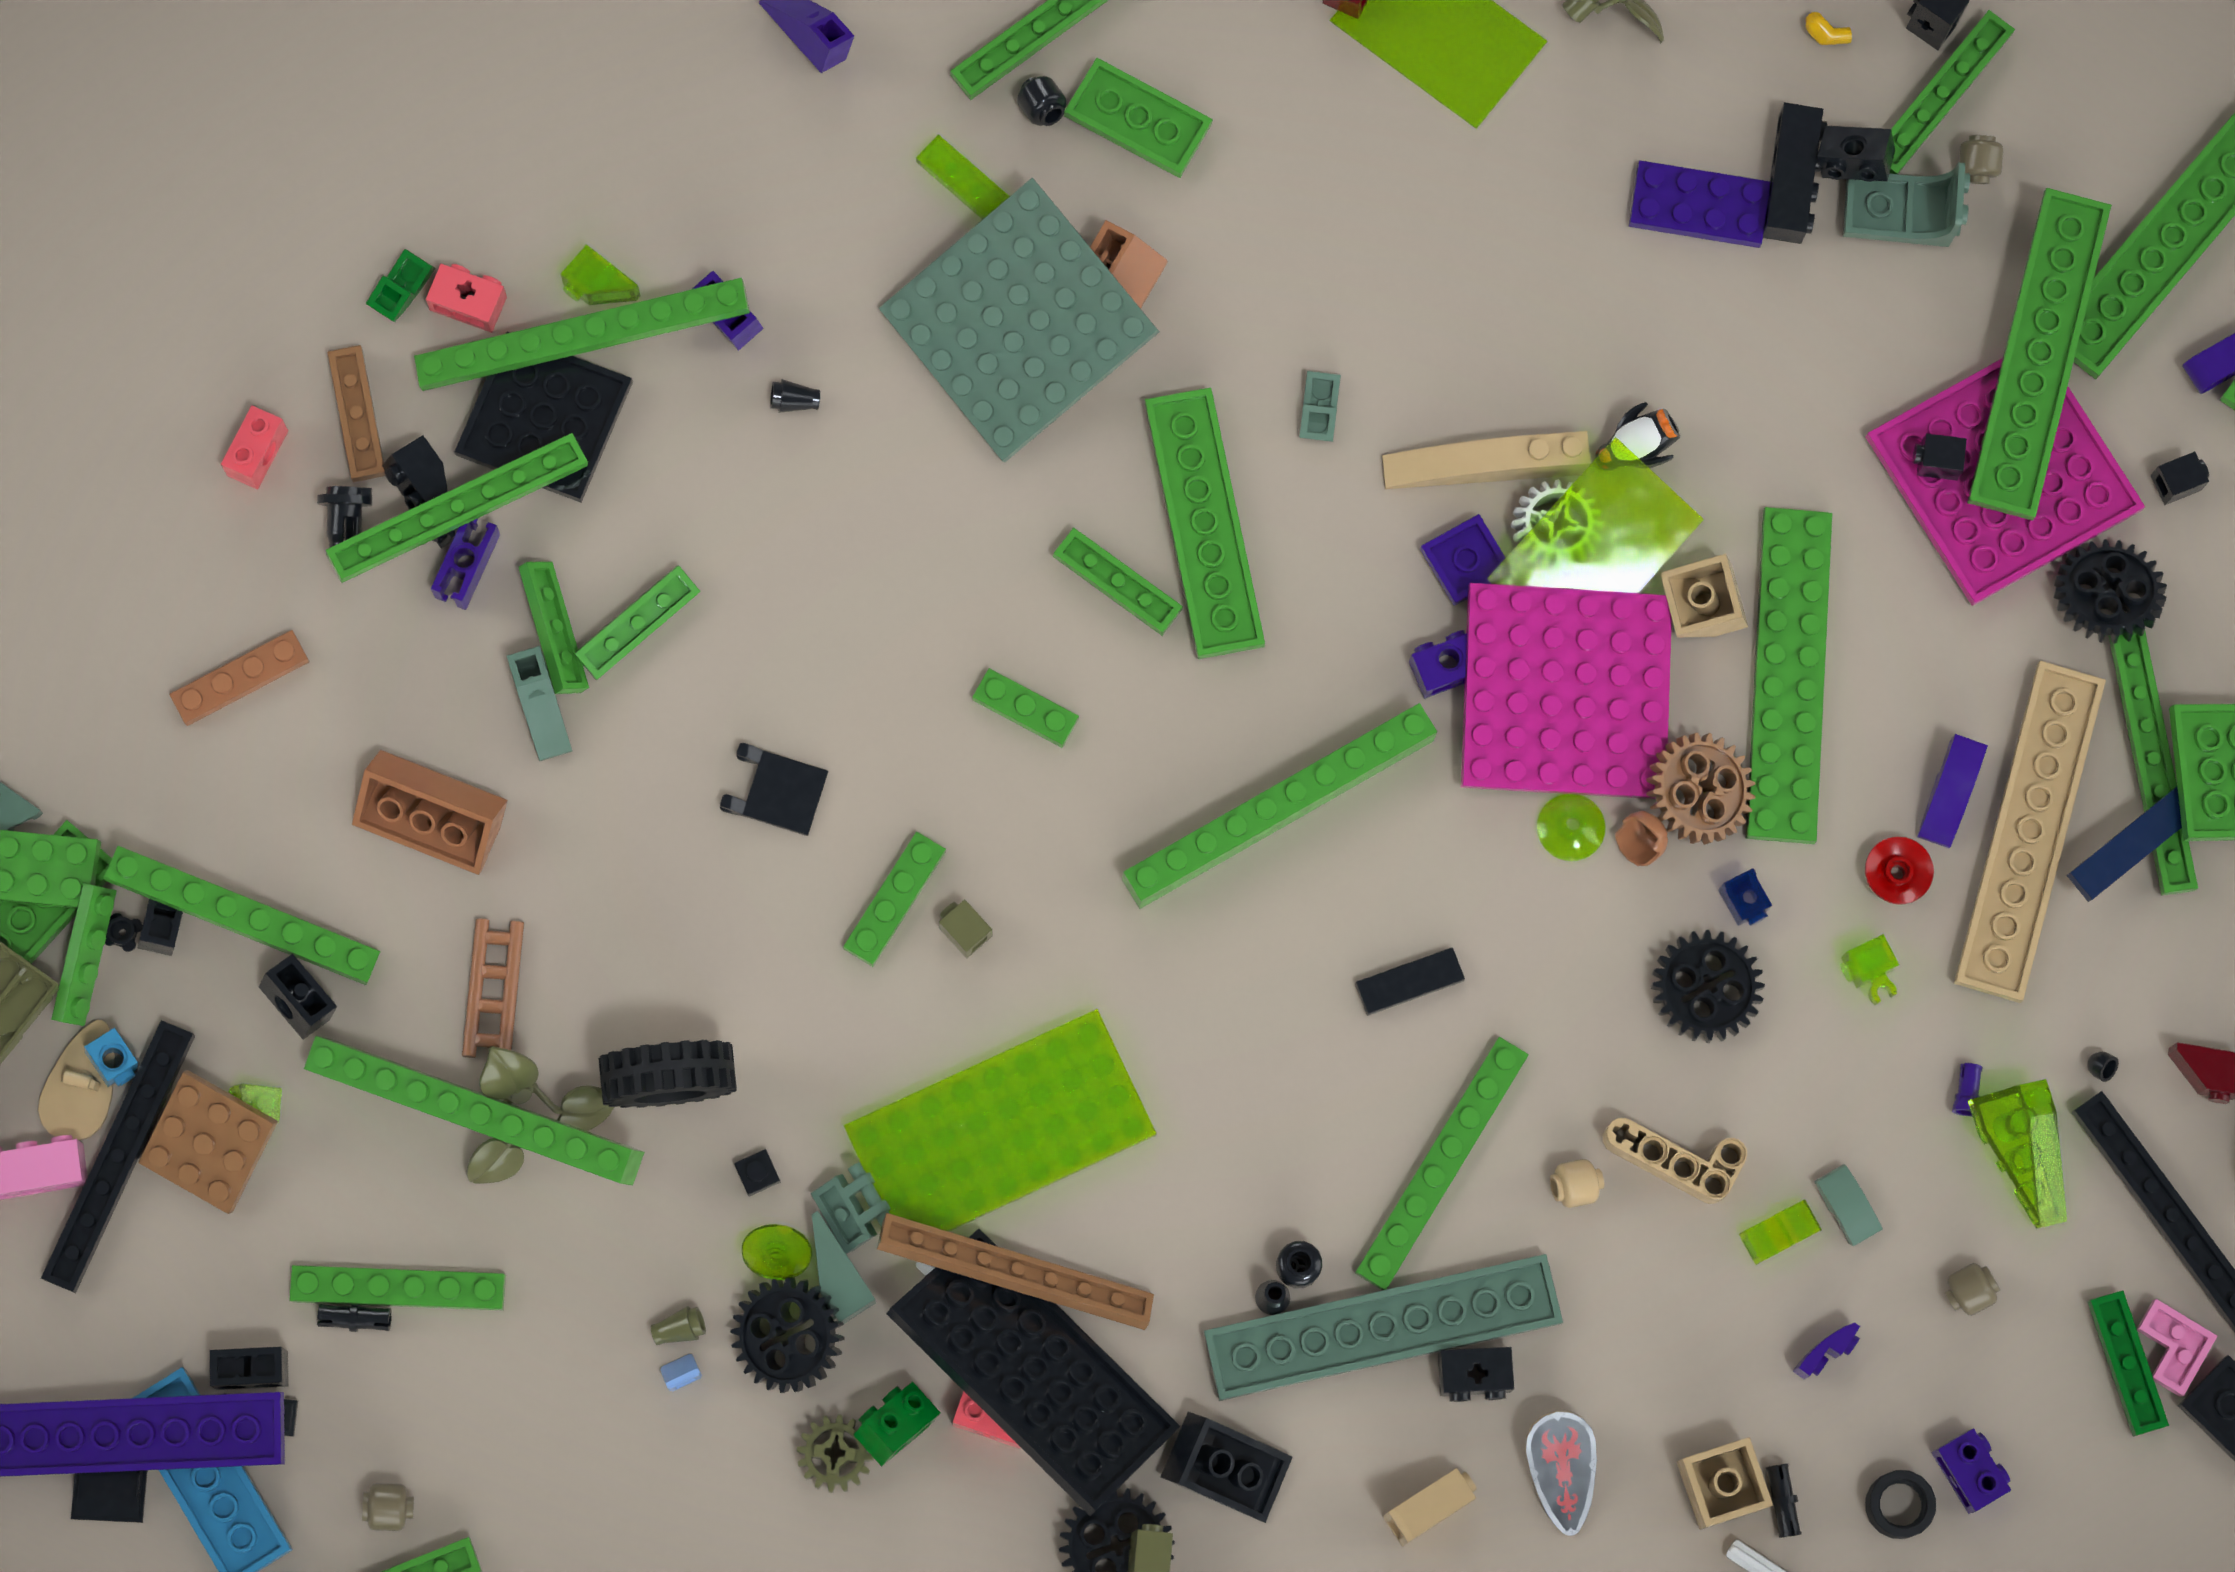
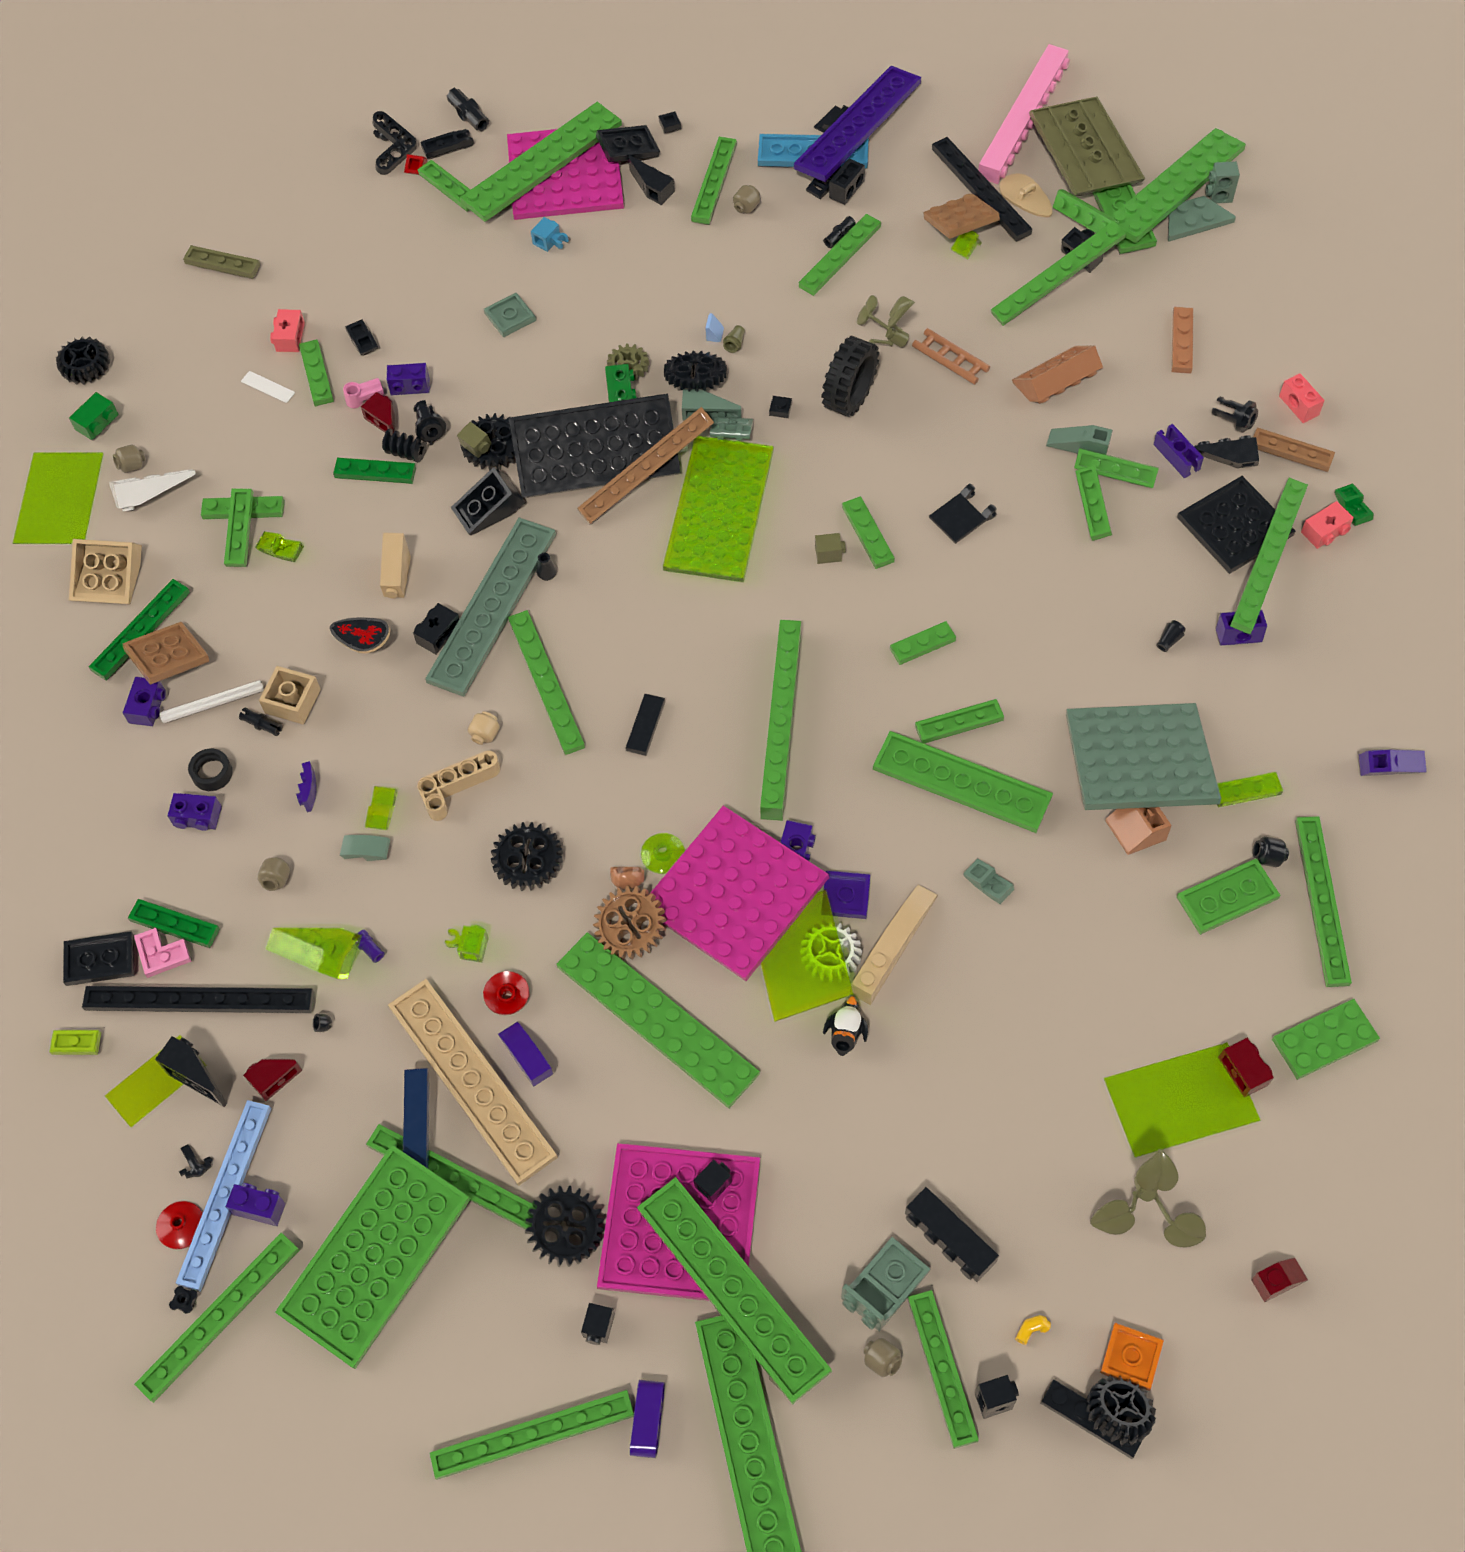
camera: 135 degrees right, 15 degrees down
(111, 1043) = (1028, 196): dark azure brick -> none
(297, 996) = (1003, 277): black brick -> none
(456, 508) = (1207, 450): bright green plate -> none
(474, 1110) = (875, 309): bright green brick -> none
(597, 280) = (1301, 585): clear neon green slope -> none
(776, 1252) = (741, 382): clear neon green dish -> none
(1295, 1252) = (550, 584): black head -> none
(1699, 204) = (971, 1167): dark purple plate -> none
(1704, 598) = (730, 996): tan slope -> none
(1732, 894) = (560, 911): clear blue brick -> none
(1856, 153) = (947, 1269): black brick -> none

